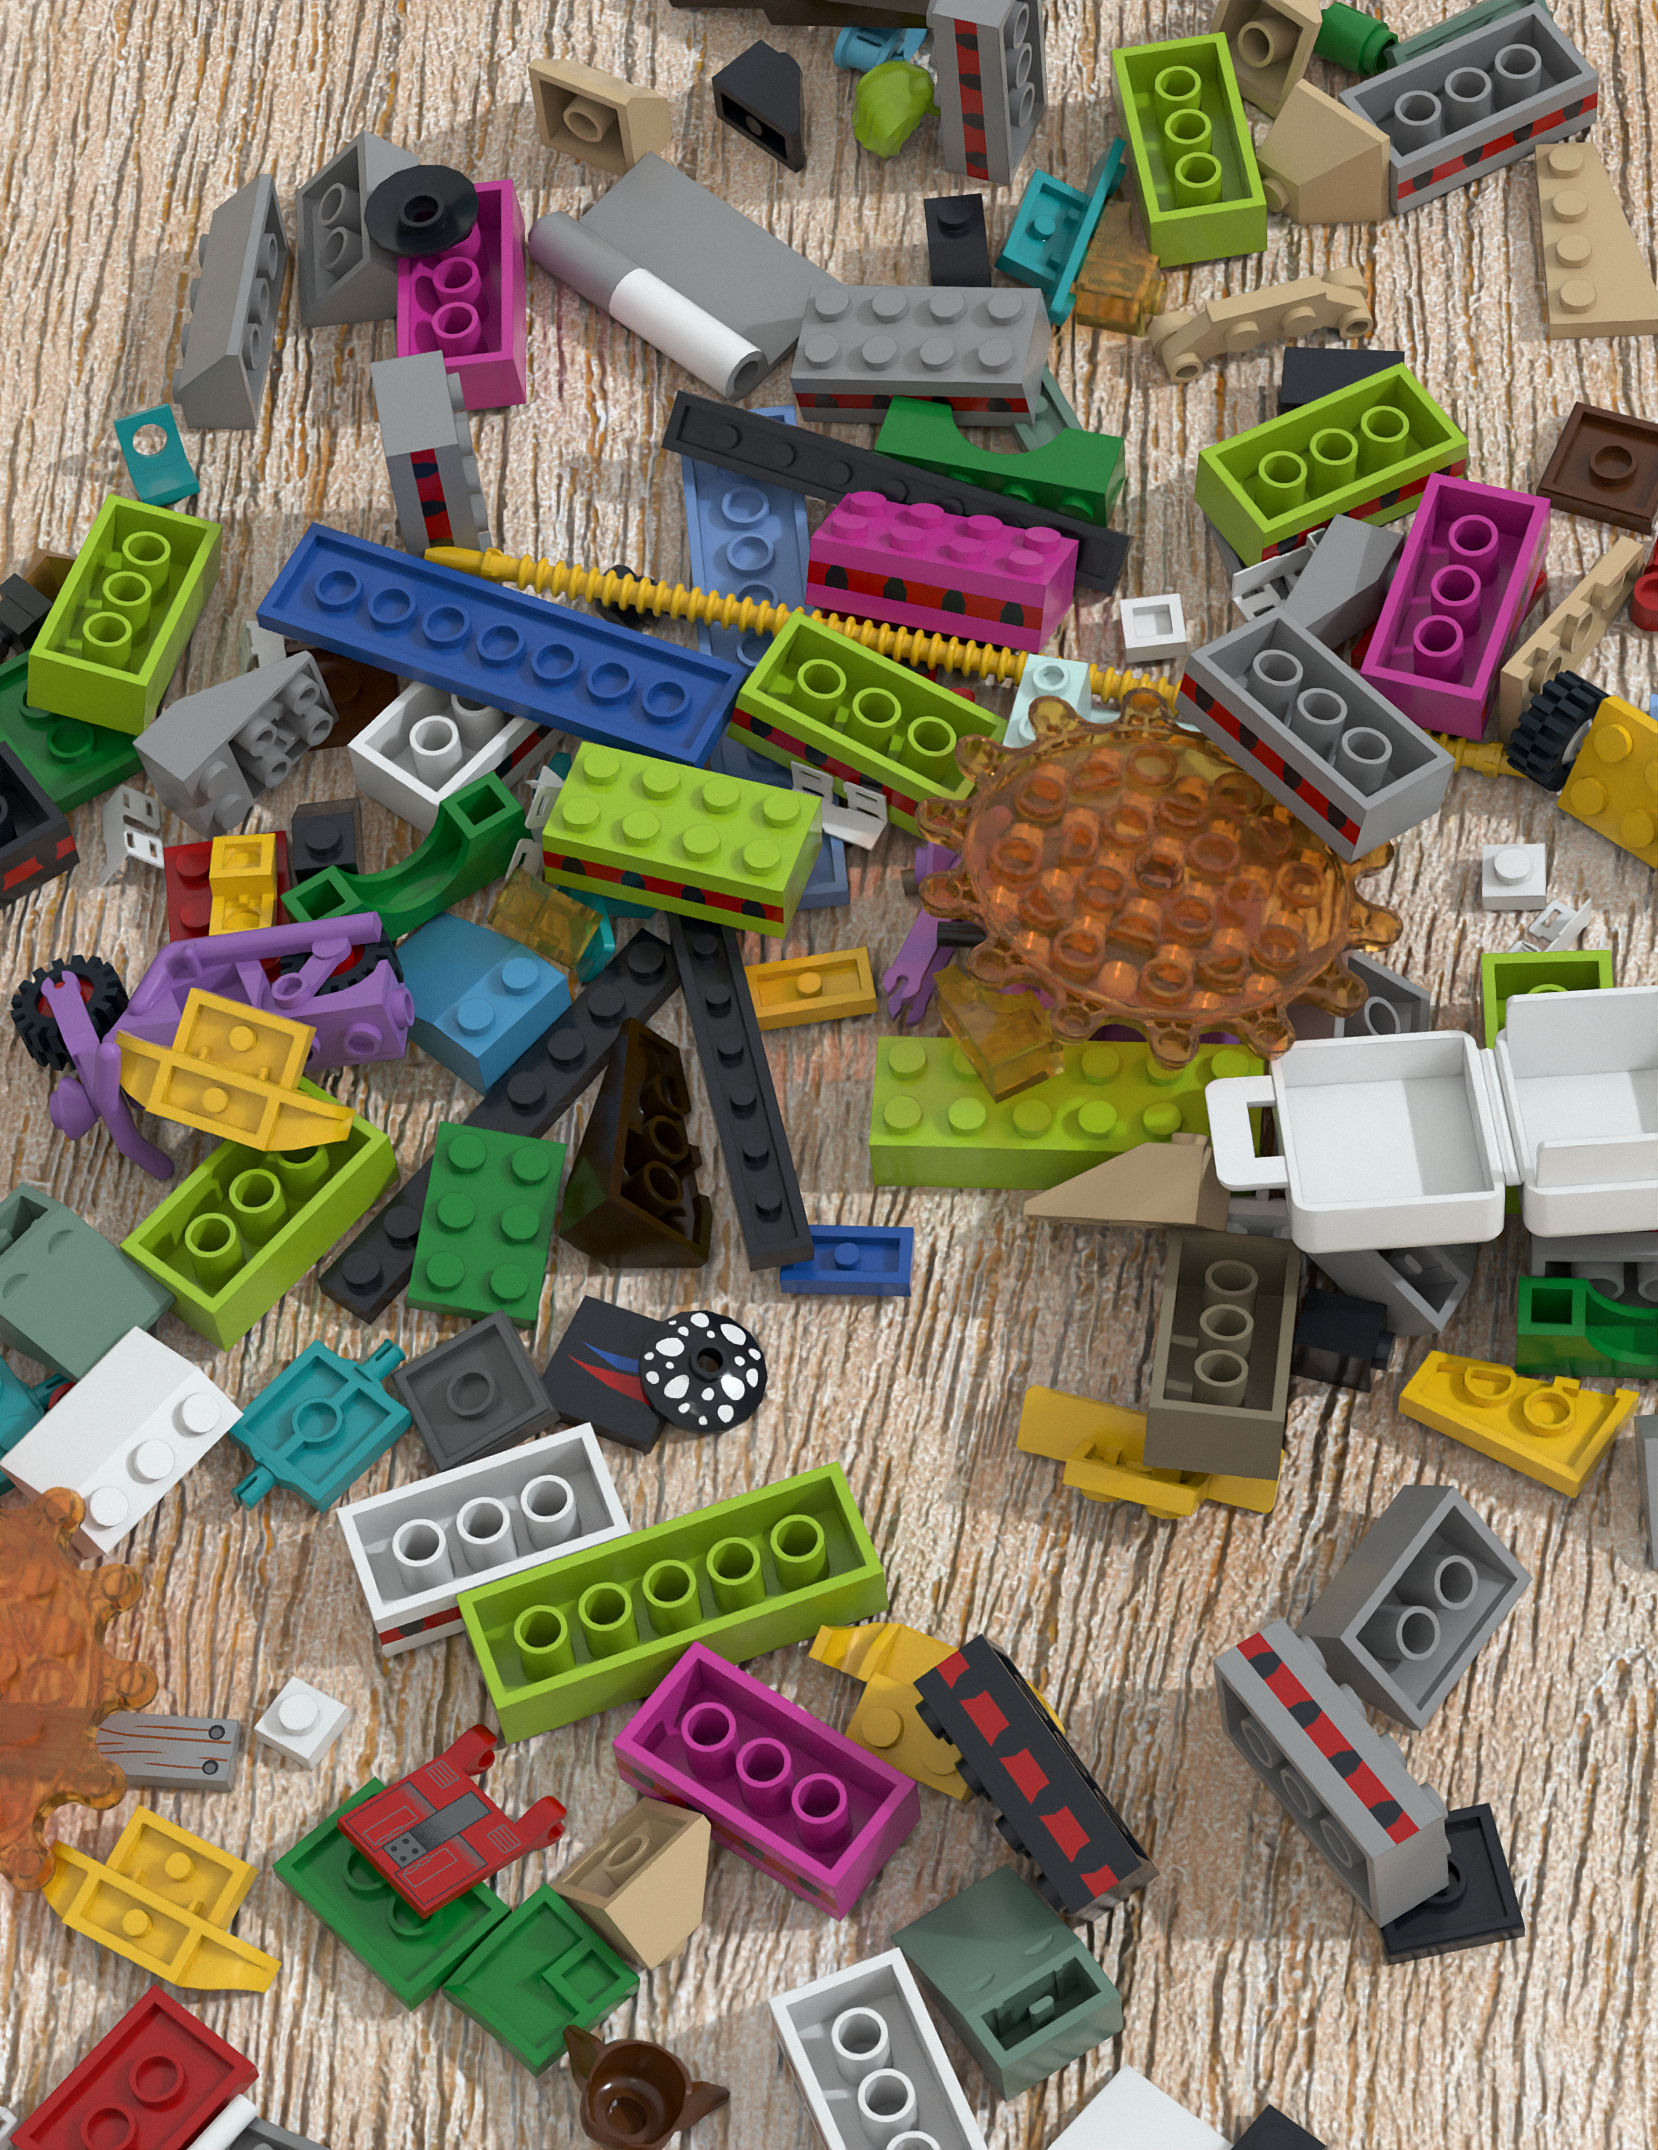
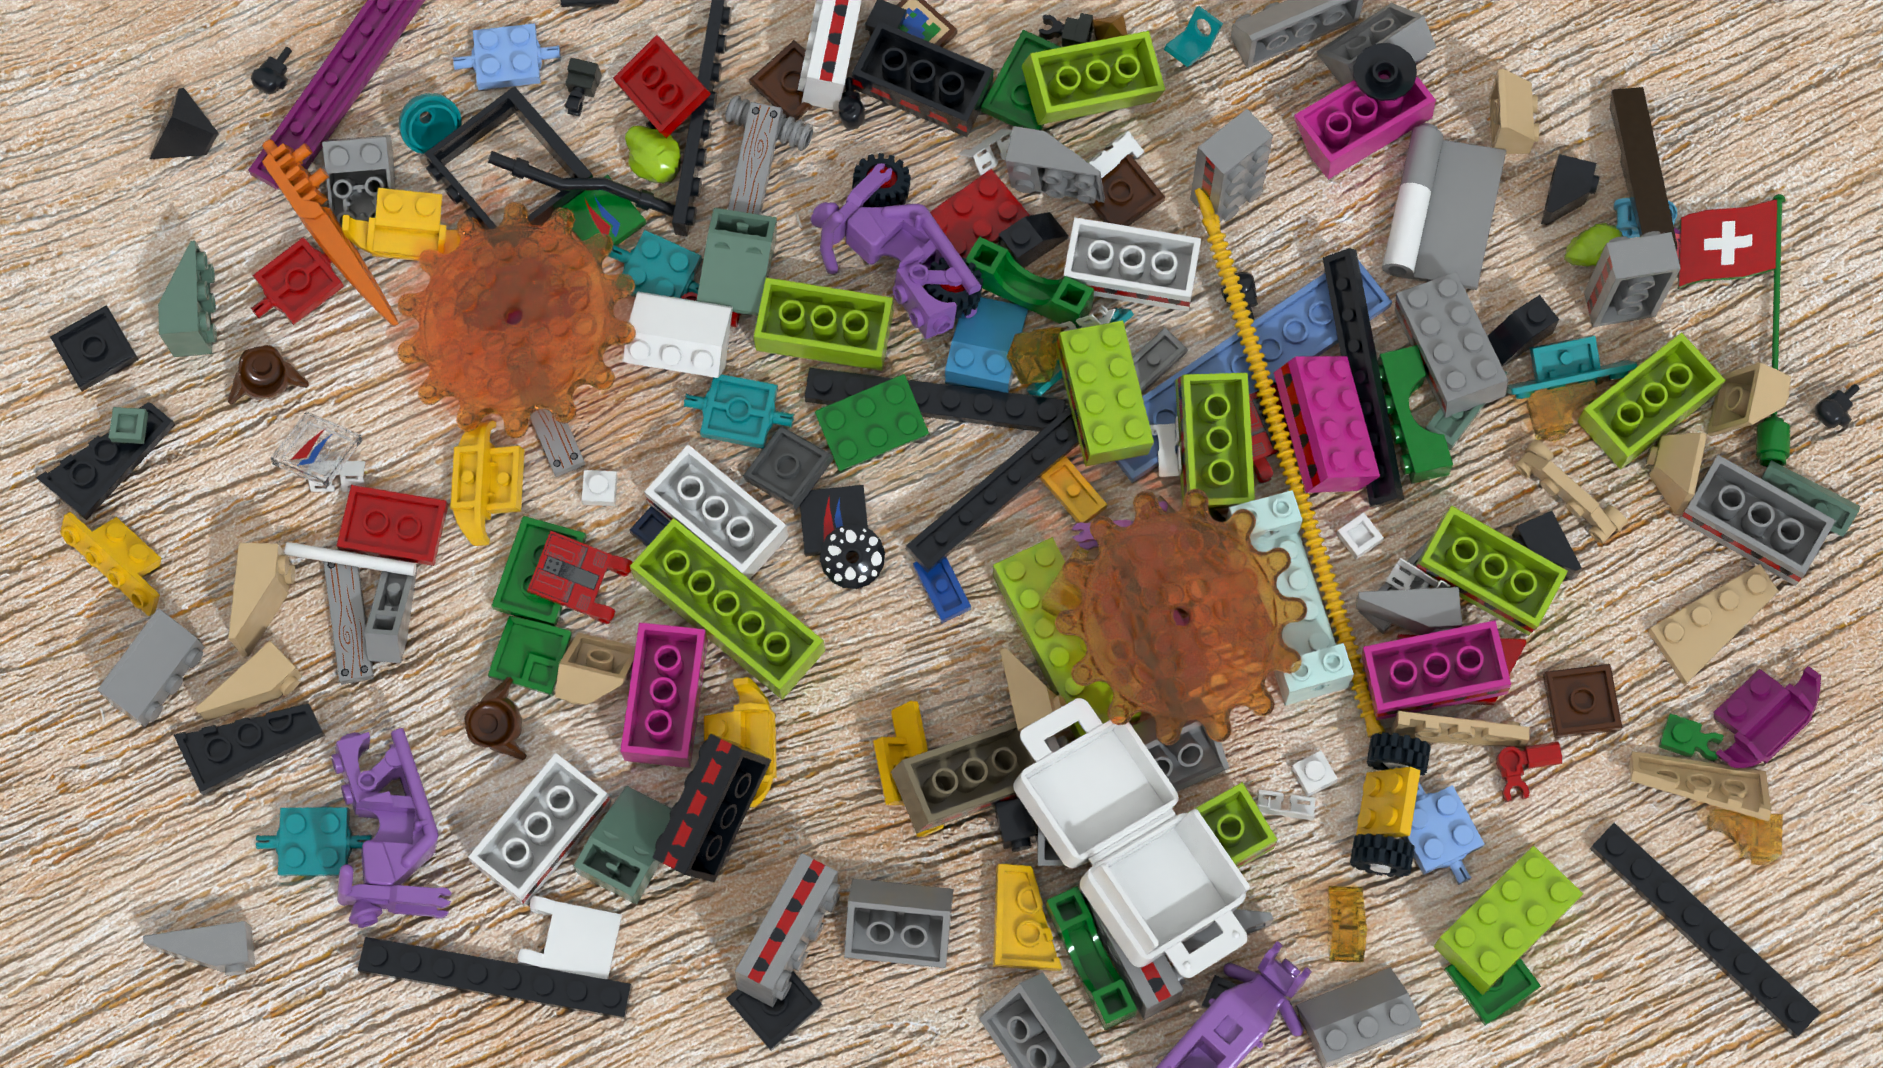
camera: 55 degrees right, 15 degrees up
(233, 1076) = (863, 275): yellow plate -> none
(243, 883) = (979, 220): yellow slope -> none
(439, 1672) = (649, 526): none -> dark blue tile
(502, 648) = (1158, 255): blue plate -> none
(634, 1173) = (936, 470): dark brown wedge -> none
(1314, 733) = (1299, 645): light grey brick -> none

